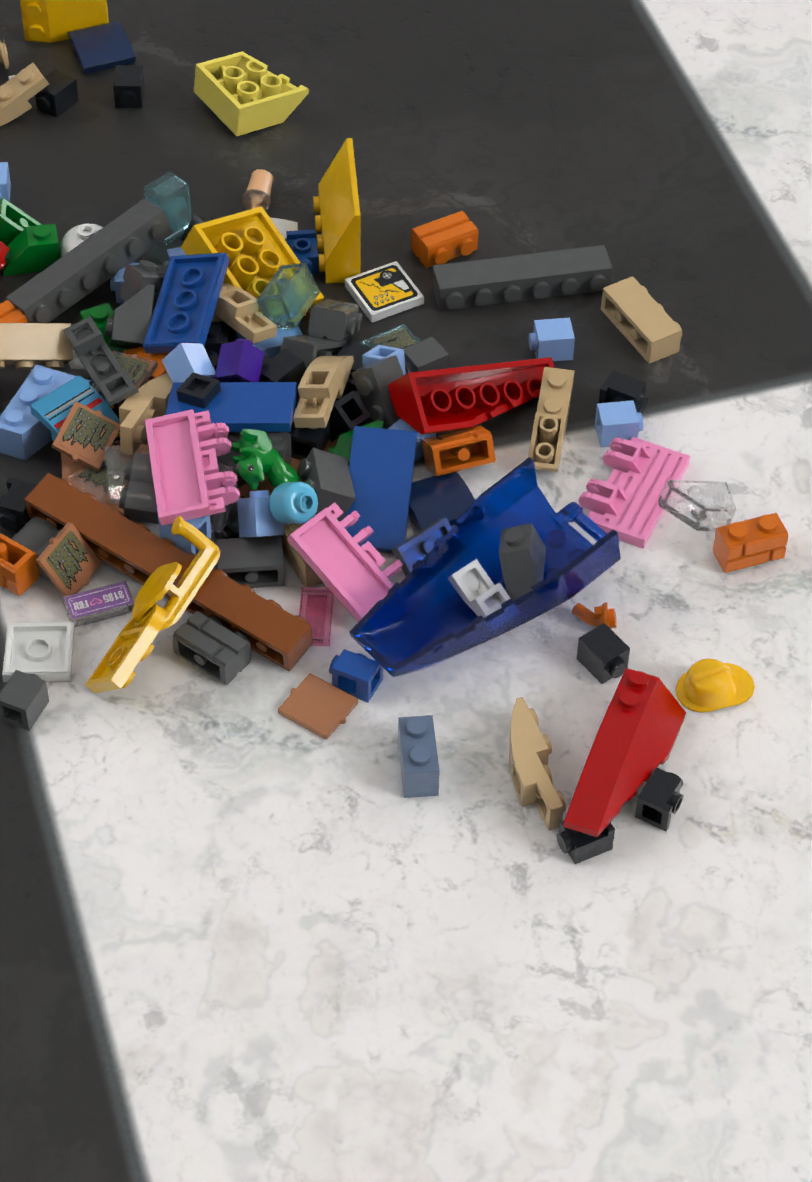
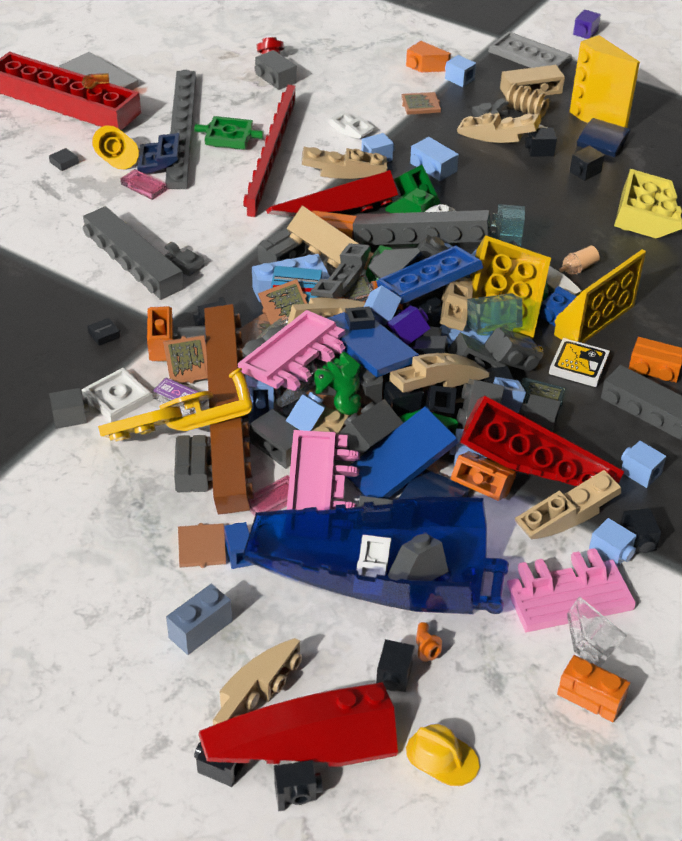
camera: 50 degrees right, 5 degrees down
(293, 503) = (323, 405): medium azure head -> none

